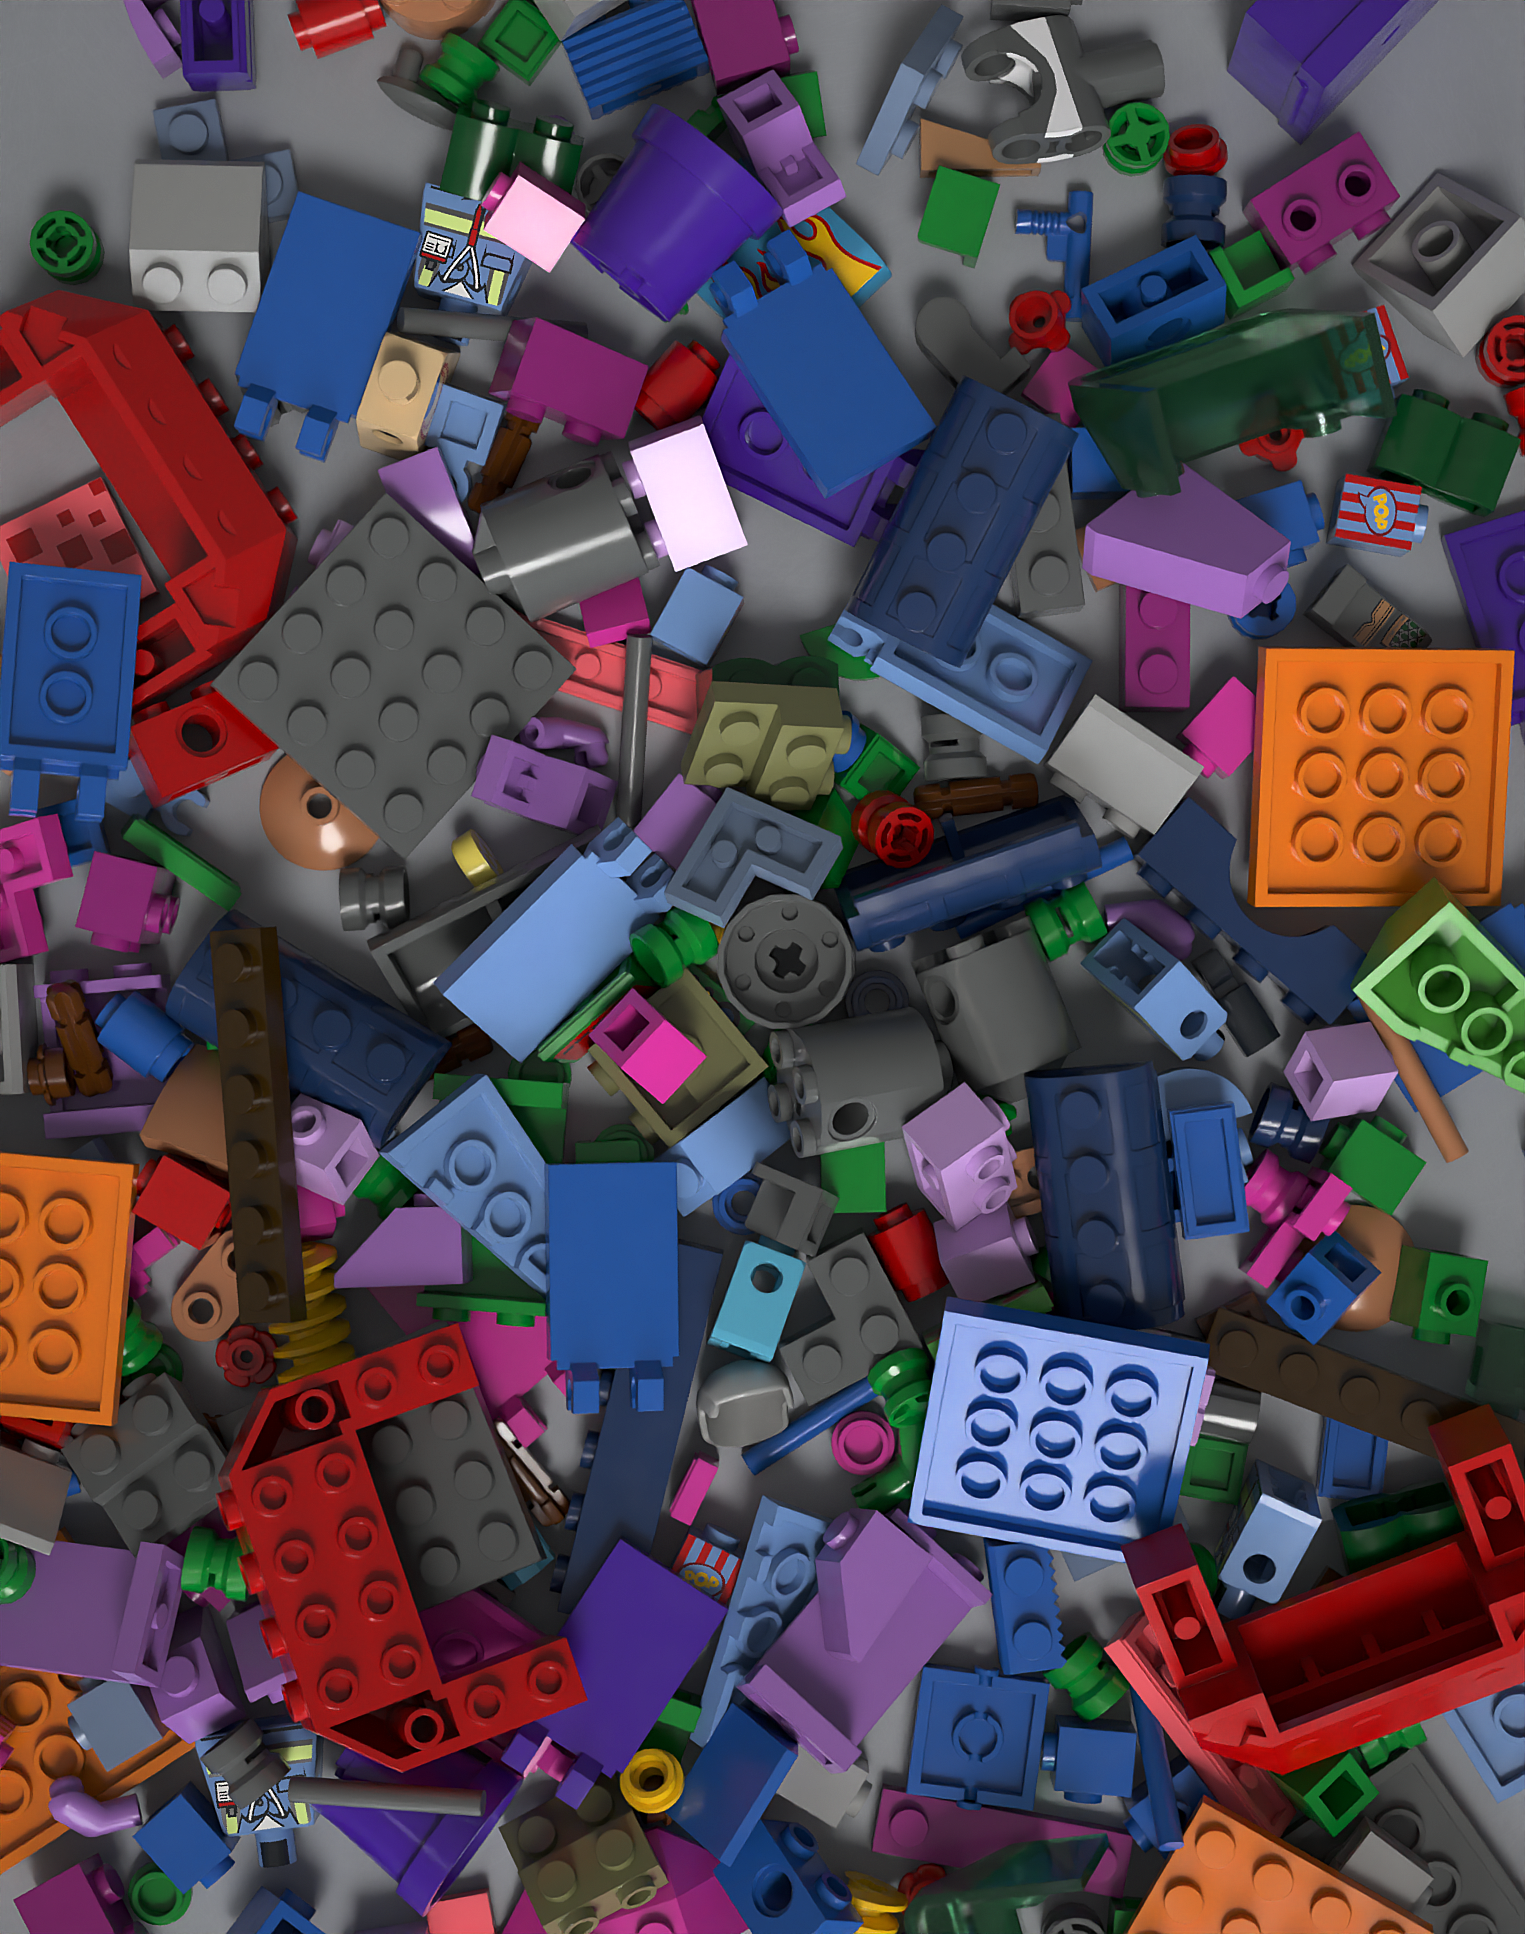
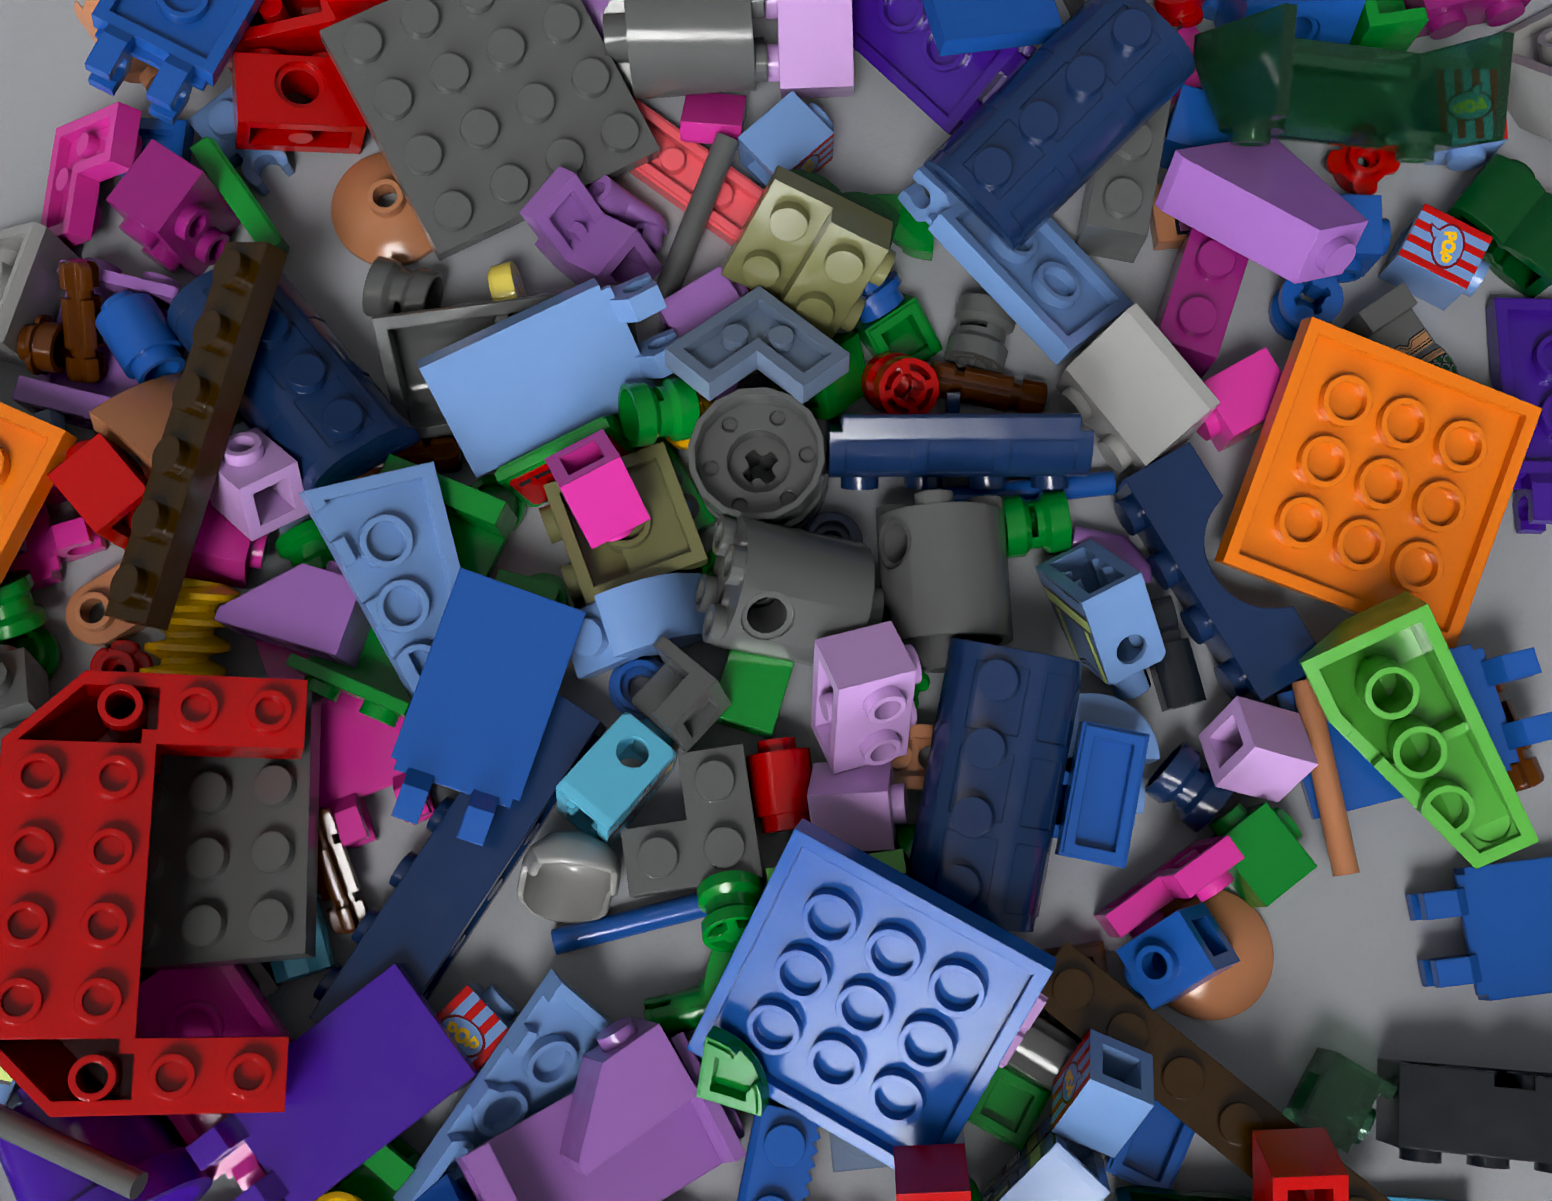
camera: 25 degrees right, 10 degrees down
(693, 1487) = (491, 944): dark pink tile -> none
(863, 1443) = (672, 958): dark pink plate -> none
(957, 1531) = (732, 1074): none -> tile
(1273, 1189) = (1155, 845): dark pink wheel -> none
(1290, 1435) = (1102, 1093): none -> medium blue brick
(1438, 1293) = (1289, 1003): green brick -> none

